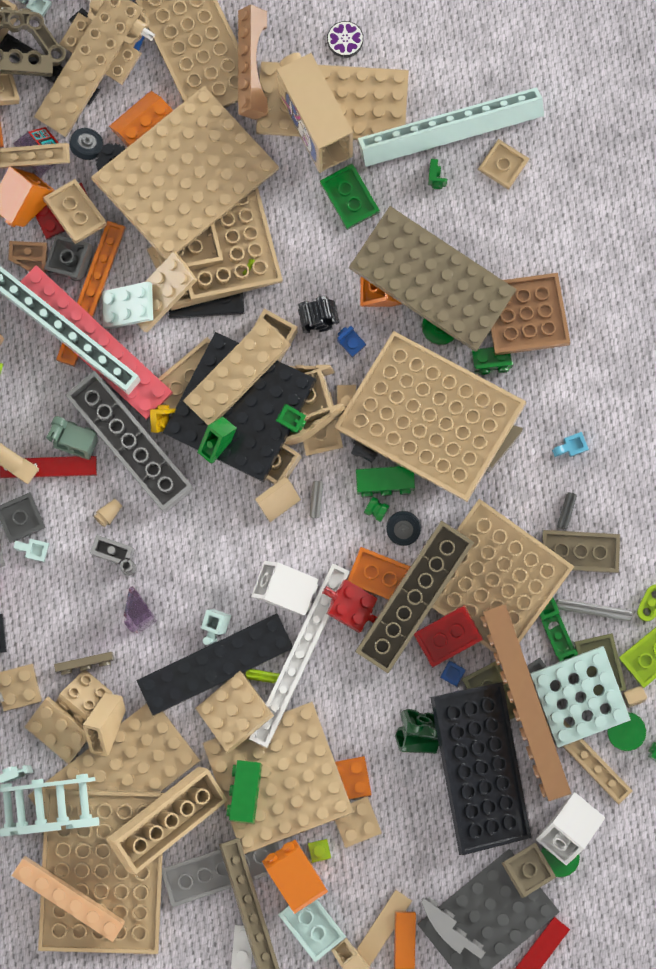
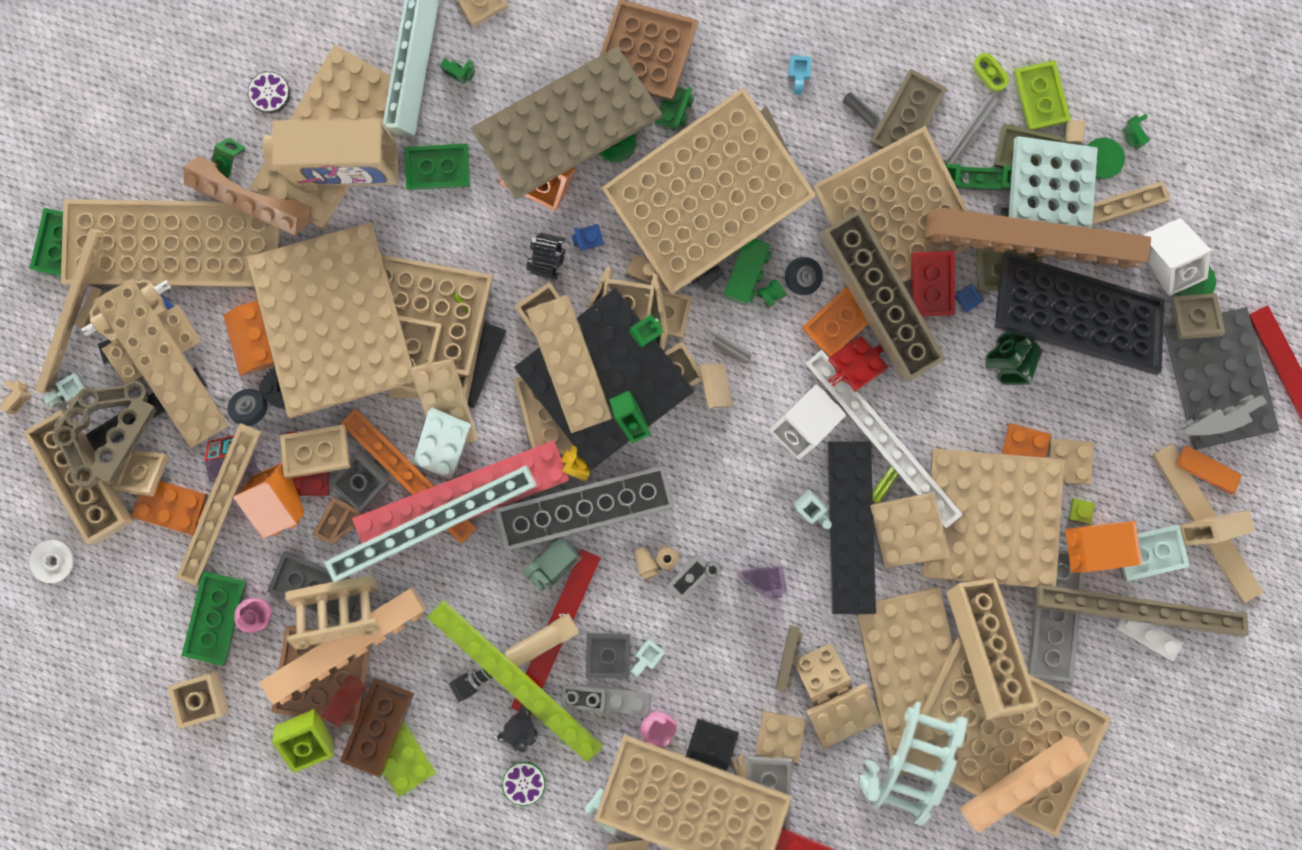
camera: 65 degrees left, 5 degrees up
(104, 723) = (861, 666): tan slope -> none
(124, 532) = (665, 550): none -> tan brick
(244, 792) = (998, 557): green brick -> none
(276, 30) = (224, 157): none -> green bracket

